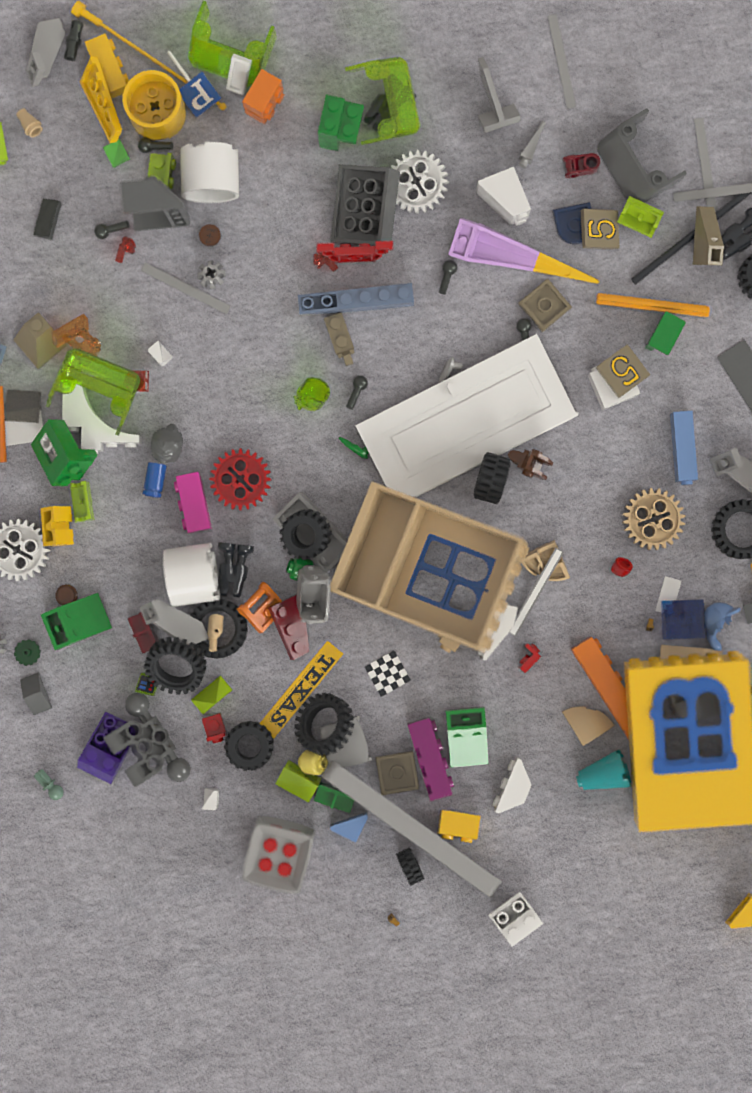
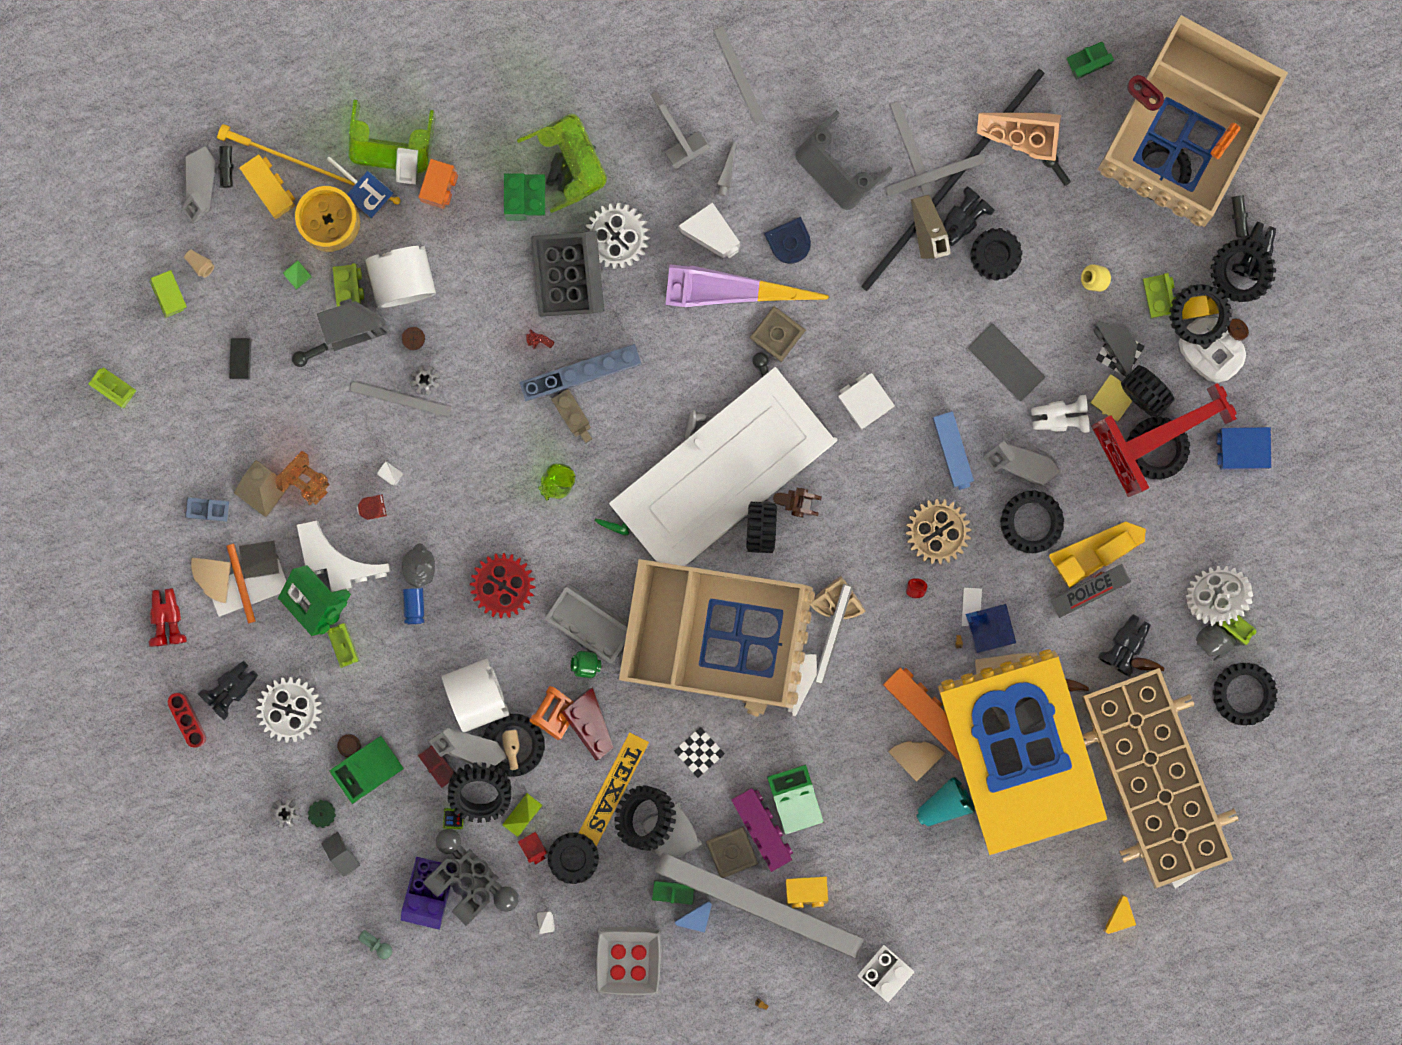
camera: 15 degrees left, 0 degrees up
(56, 526) = (323, 676): yellow brick -> none
(98, 376) = (335, 513): clear neon green windscreen -> none
(100, 99) = (269, 224): yellow wing -> none
(127, 245) = (331, 368): clear red plate -> none
(146, 145) = (326, 258): pearl dark grey bar -> none
(192, 502) = (458, 620): dark pink brick -> none
(233, 573) = (516, 684): black piece -> none
(290, 538) = (571, 639): black tyre -> none
(297, 782) = (631, 883): lime hinge -> none
(312, 763) = (642, 861): light yellow head -> none
(313, 594) = (604, 688): light grey piece -> none
(349, 254) = (560, 327): red wing -> none
(359, 383) = (603, 457): pearl dark grey bar -> none
(410, 866) = (766, 944): black tyre -> none
(449, 268) = (669, 316): pearl dark grey bar -> none
(514, 787) = (855, 840): white slope -> none
(529, 660) = (841, 706): red bracket -> none
(579, 165) = (781, 181): dark red piece -> none
(600, 229) = (817, 243): dark tan tile -> none
(623, 371) = (871, 387): dark tan tile -> none
(640, 216) = (855, 221): lime hinge -> none
(652, 305) = (889, 309): light orange axle -> none
(666, 333) = (908, 337): green panel -> none
(715, 617) = (1023, 623): medium blue piece -> none

